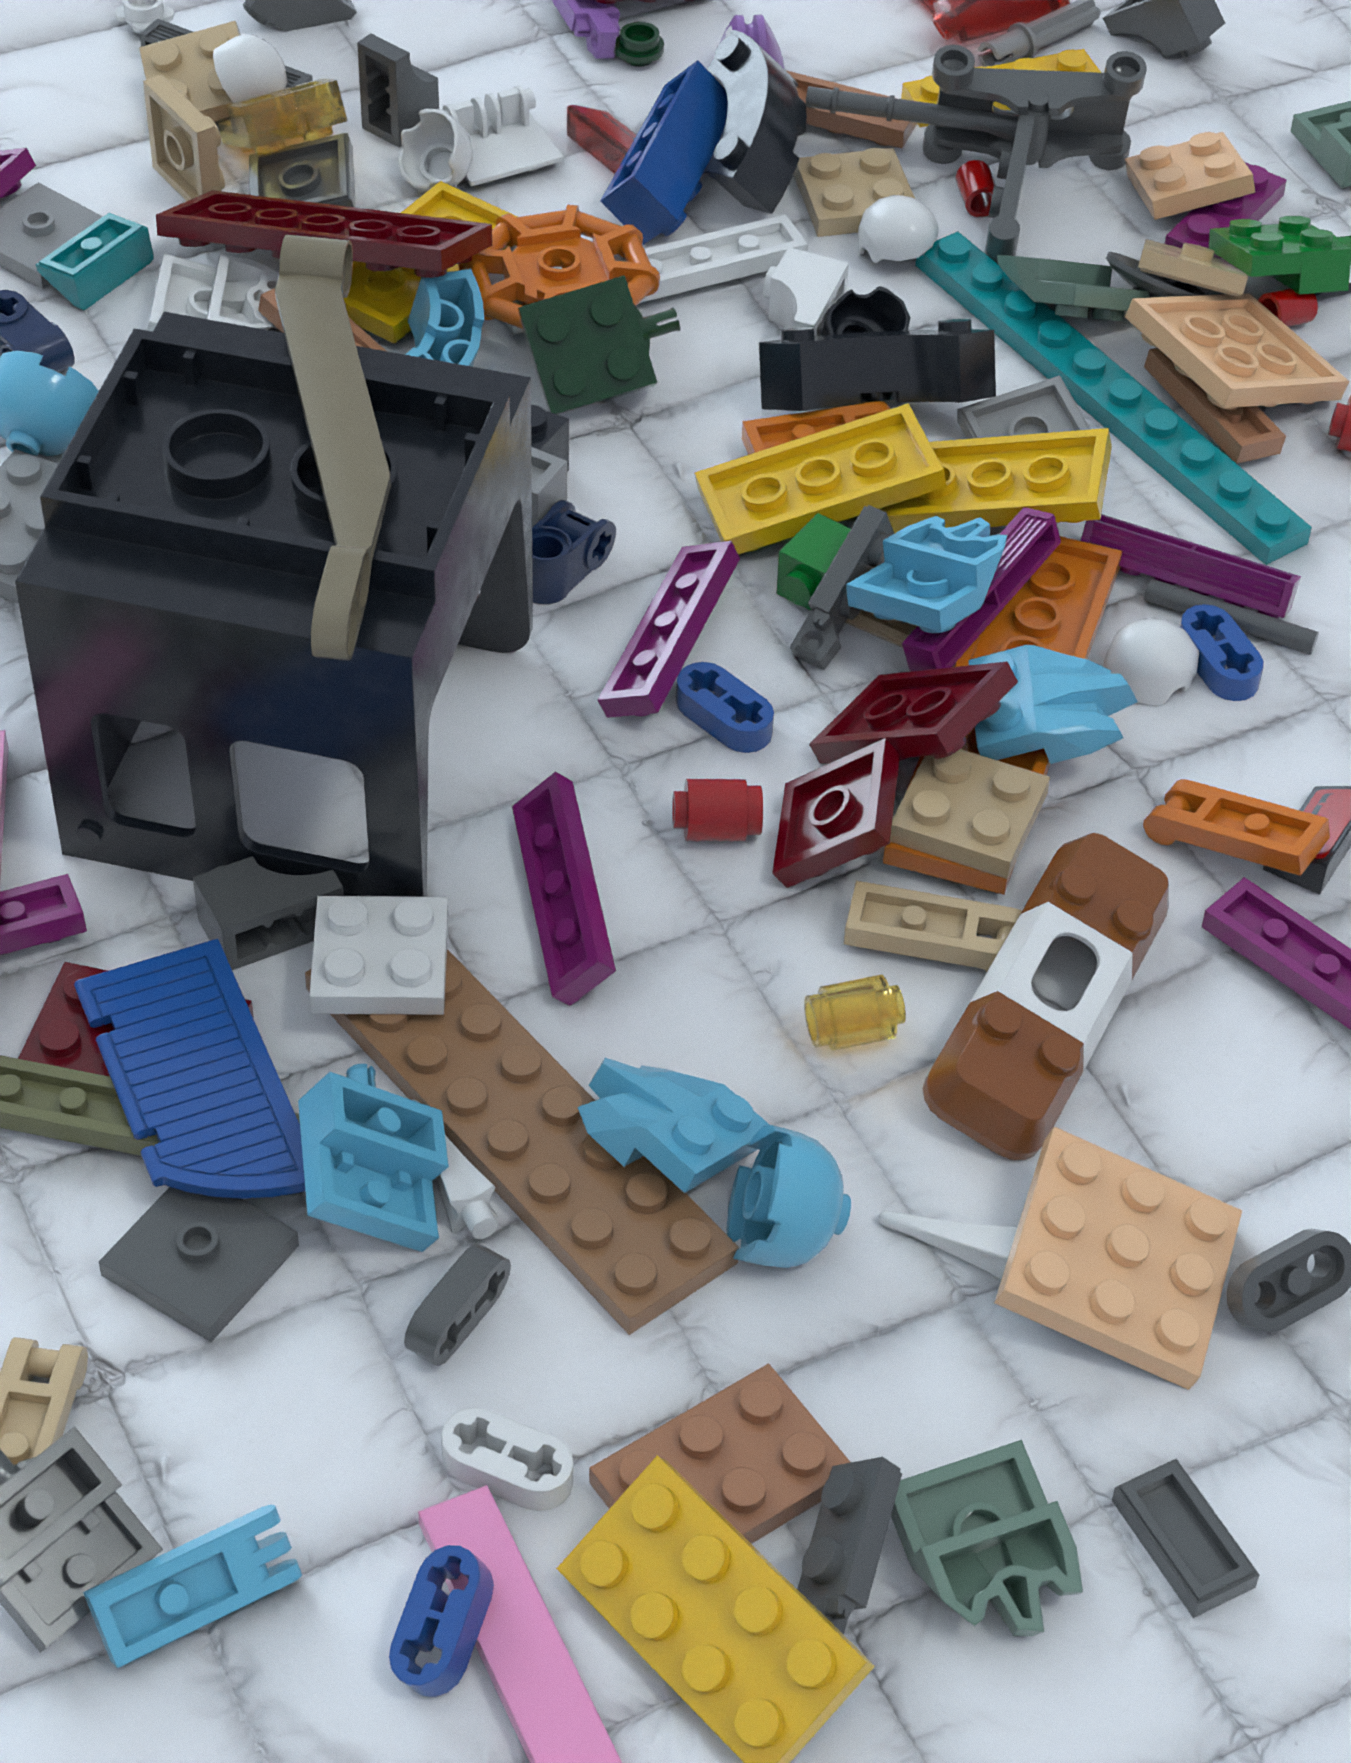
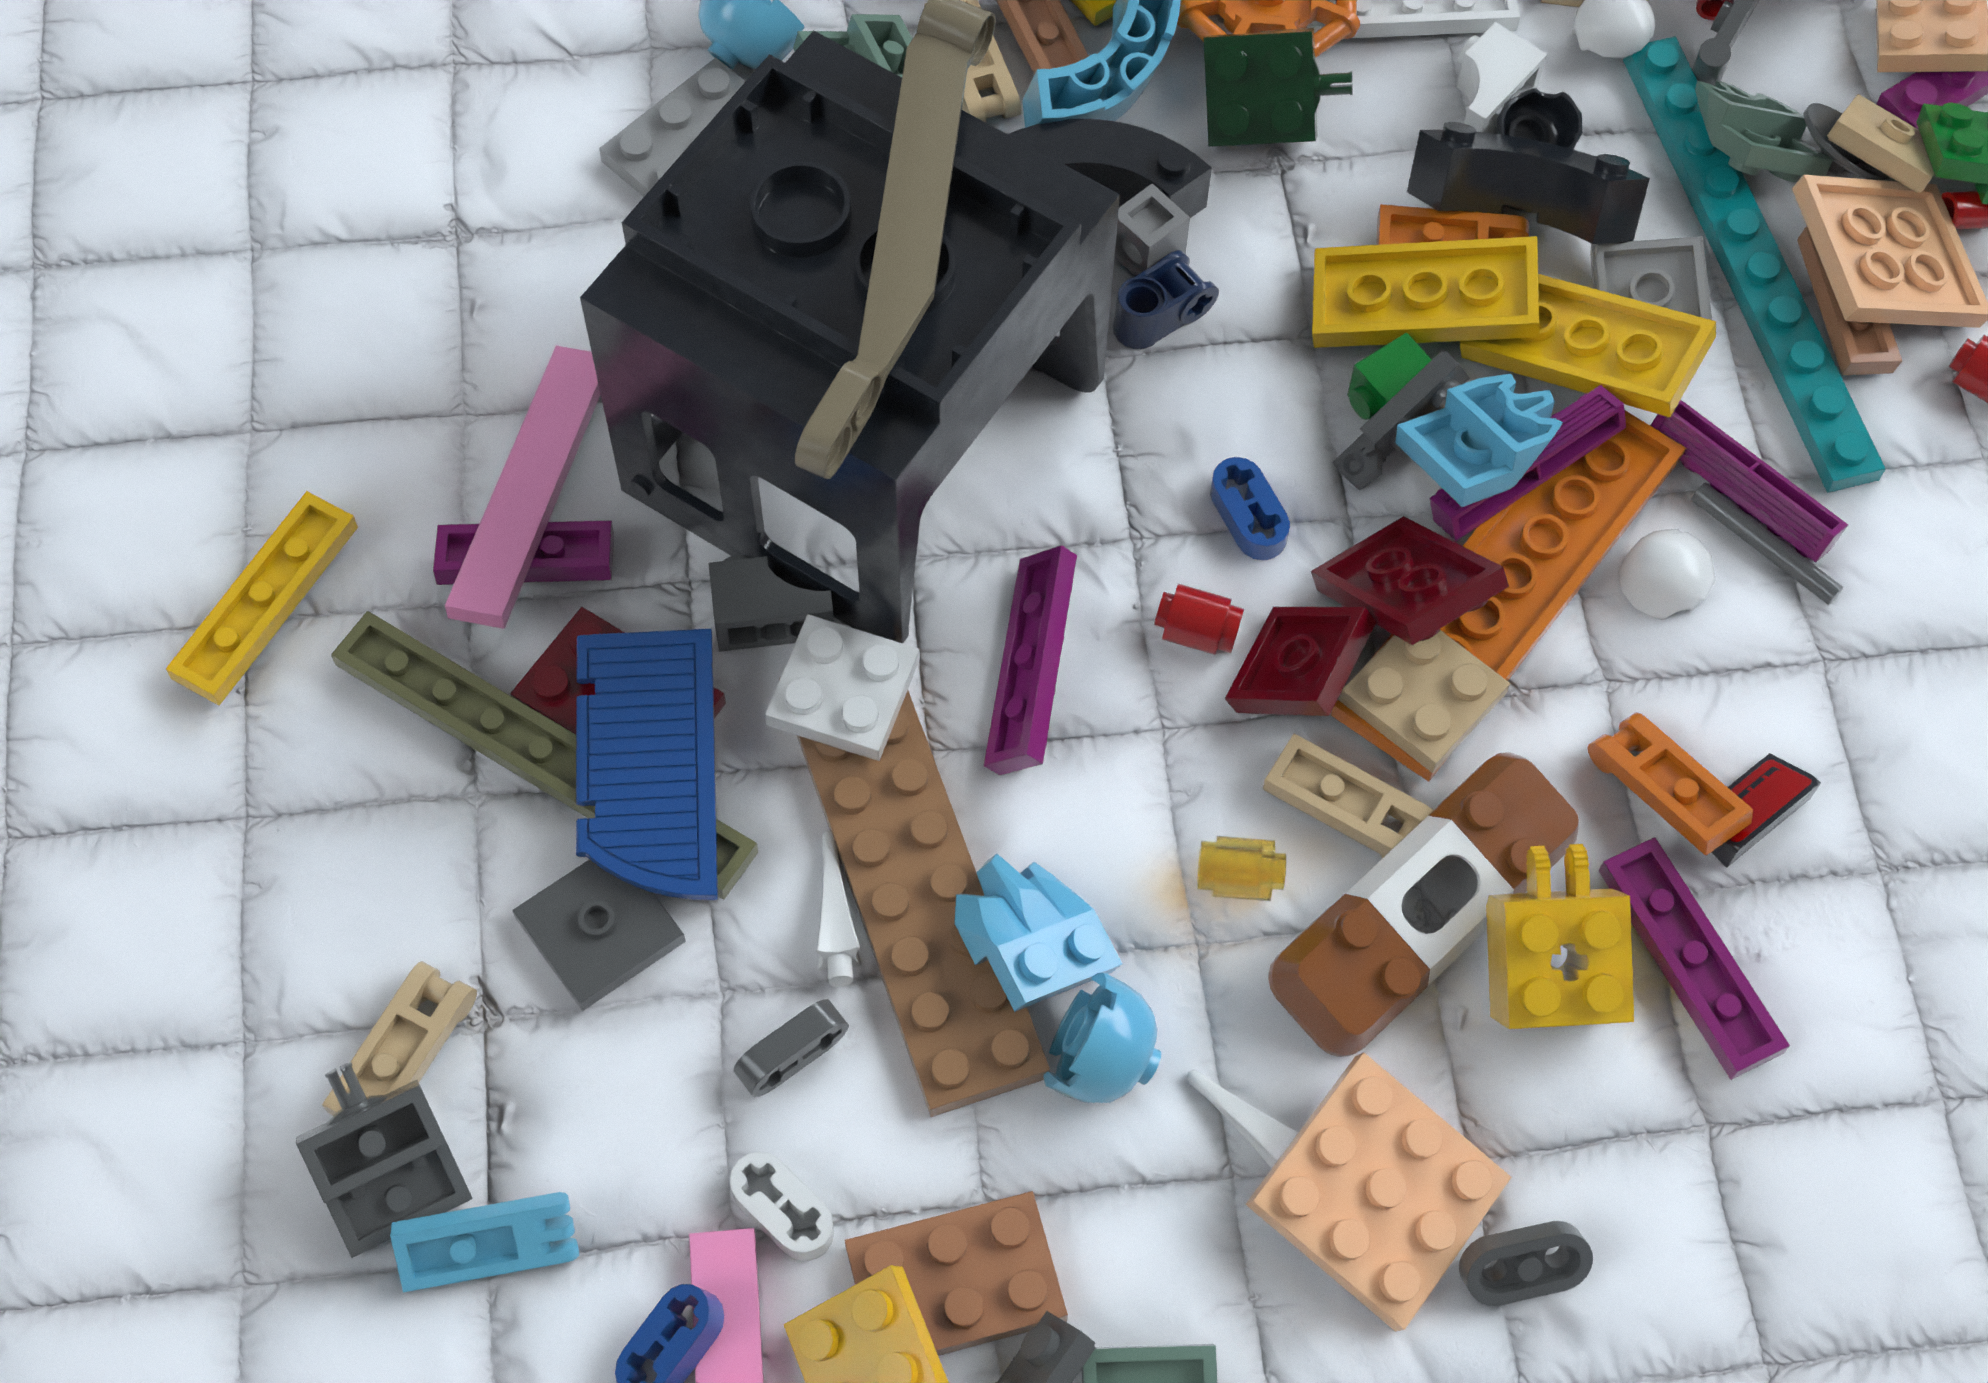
camera: 20 degrees right, 15 degrees up
(371, 1158) = (762, 891): medium azure plate -> none
(668, 630) = (1227, 413): magenta plate -> none
(1054, 706) = (1547, 606): medium azure plate -> none
(1201, 987) = (1531, 927): none -> yellow hinge
(1228, 649) = (1750, 579): blue beam -> none

